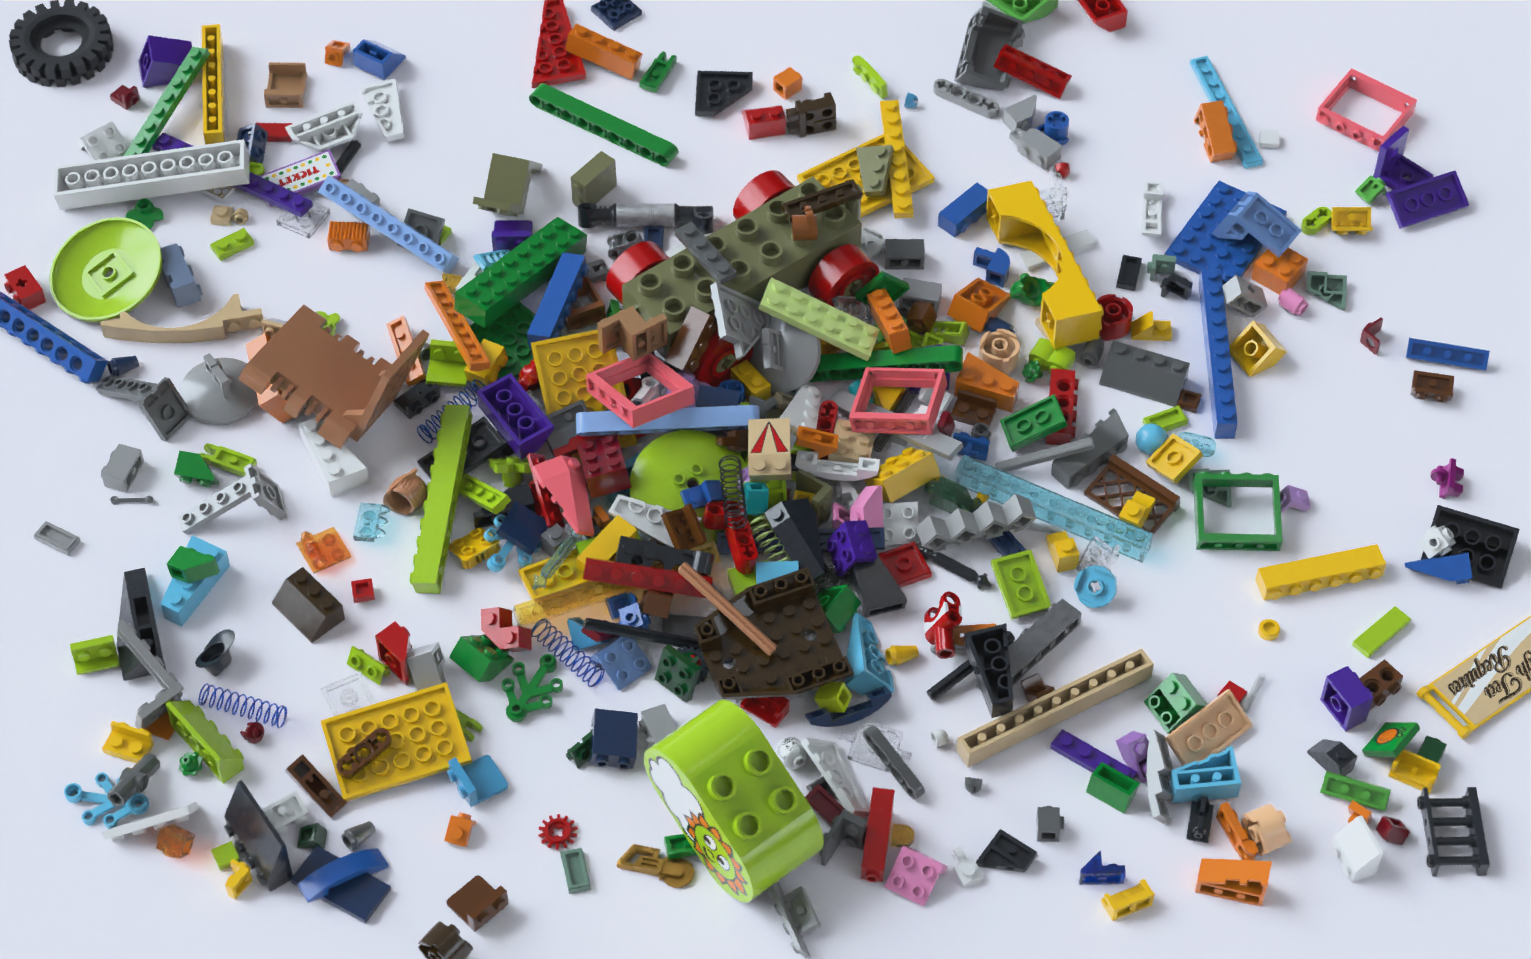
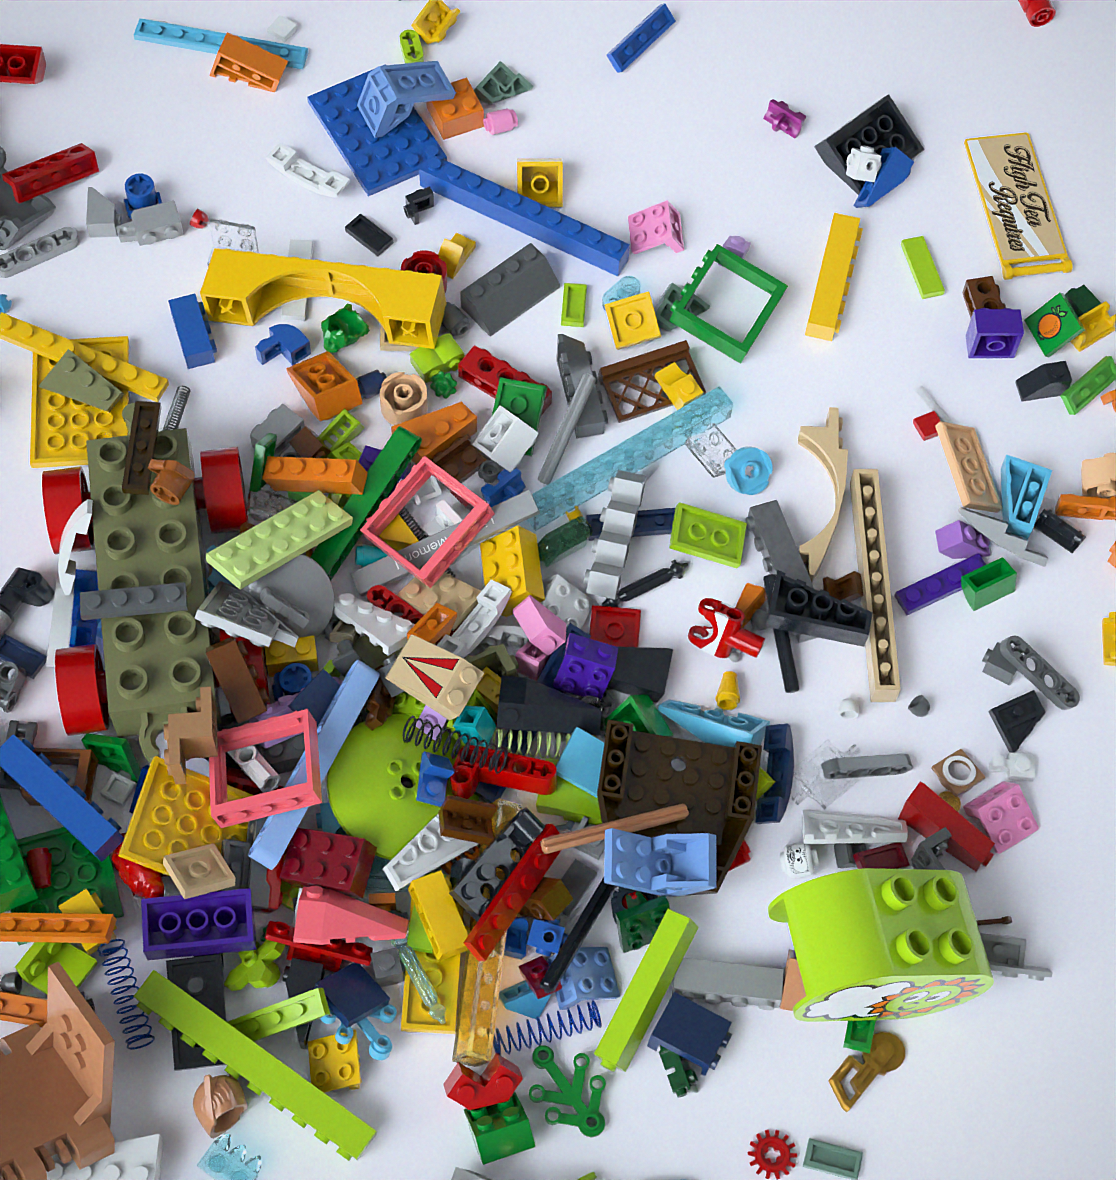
camera: 65 degrees left, 10 degrees up
(508, 321) = (39, 864): none -> red cone
(548, 392) = (199, 871): none -> tan plate
(628, 694) = (646, 991): none -> lime brick
(713, 640) = (661, 864): none -> medium blue bracket
(737, 209) = (77, 523): none -> white slope
(811, 885) = (1004, 920): none -> reddish brown hinge
(889, 230) = (172, 409): none -> dark grey piece
(904, 254) = (211, 418): dark grey brick -> none
(933, 842) = (954, 785): none -> medium nougat piece
(1007, 424) = (505, 439): none -> white slope
(1050, 847) = (1037, 676): none -> dark grey beam
(1063, 551) = (682, 476): yellow arch -> none
(1097, 874) = (1075, 648): clear blue slope -> none
(1150, 438) = (592, 327): medium azure hair -> none
(1159, 631) = (827, 448): none -> tan slope
(1161, 264) = (382, 203): sand green bracket -> none
(1174, 701) = (919, 477): slope -> none
(1189, 400) = (564, 271): reddish brown tile -> none
(1244, 296) = (474, 153): light grey brick -> none
(1269, 629) = (870, 355): yellow tile -> none
(1276, 442) = (656, 226): none -> bright pink bracket
(1369, 332) = (579, 86): dark red bracket -> none
(1432, 385) = (670, 70): reddish brown bracket -> none

